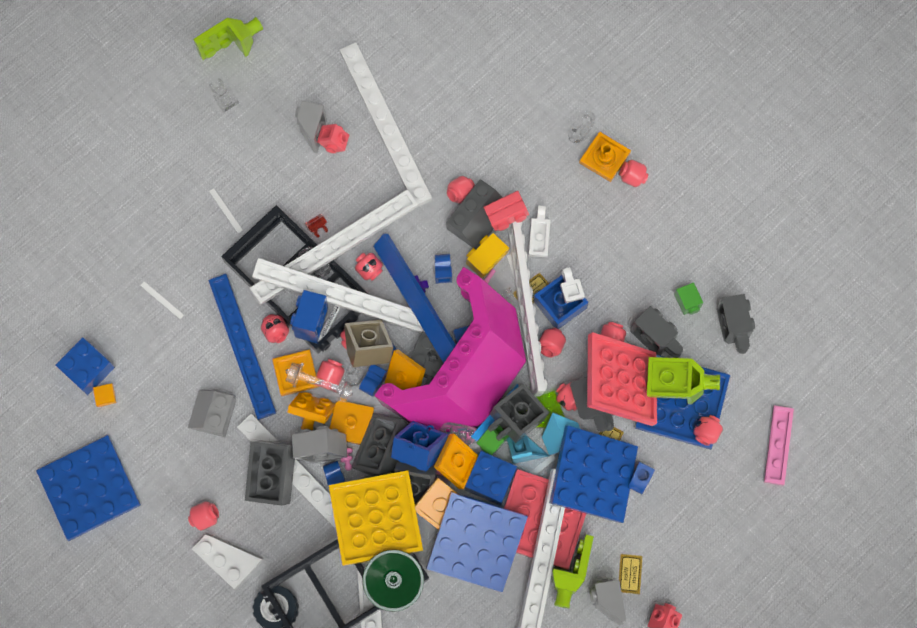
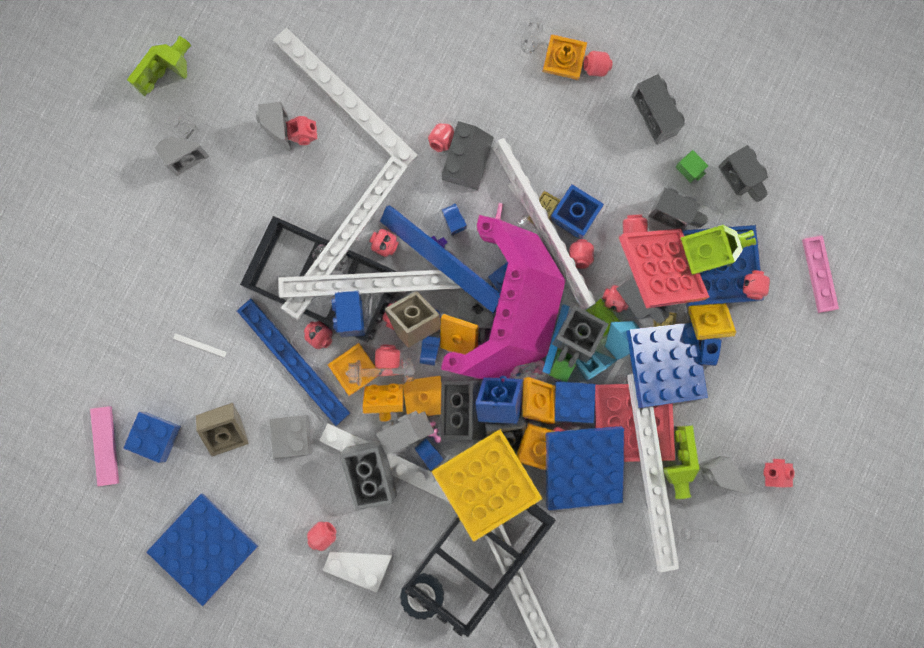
camera: 25 degrees left, 10 degrees up
(38, 360) = (104, 446): none -> bright pink tile
(104, 395) = (182, 456): light orange tile -> none
(151, 383) = (221, 429): none -> dark tan slope
(214, 121) = (180, 154): none -> light grey slope
(226, 211) = (225, 236): white sticker -> none
(316, 223) = (317, 219): clear red tile -> none
(393, 580) = (525, 537): dark green hat -> none
(486, 255) = (490, 192): yellow brick -> none
(506, 211) = (496, 143): coral brick -> none
(539, 234) = (531, 154): white plate -> none
(571, 288) = (585, 197): white plate -> none
(630, 573) = (729, 441): clear yellow sticker -> none
(653, 449) = (711, 321): none -> yellow tile
(674, 233) = (658, 109): none -> dark grey brick

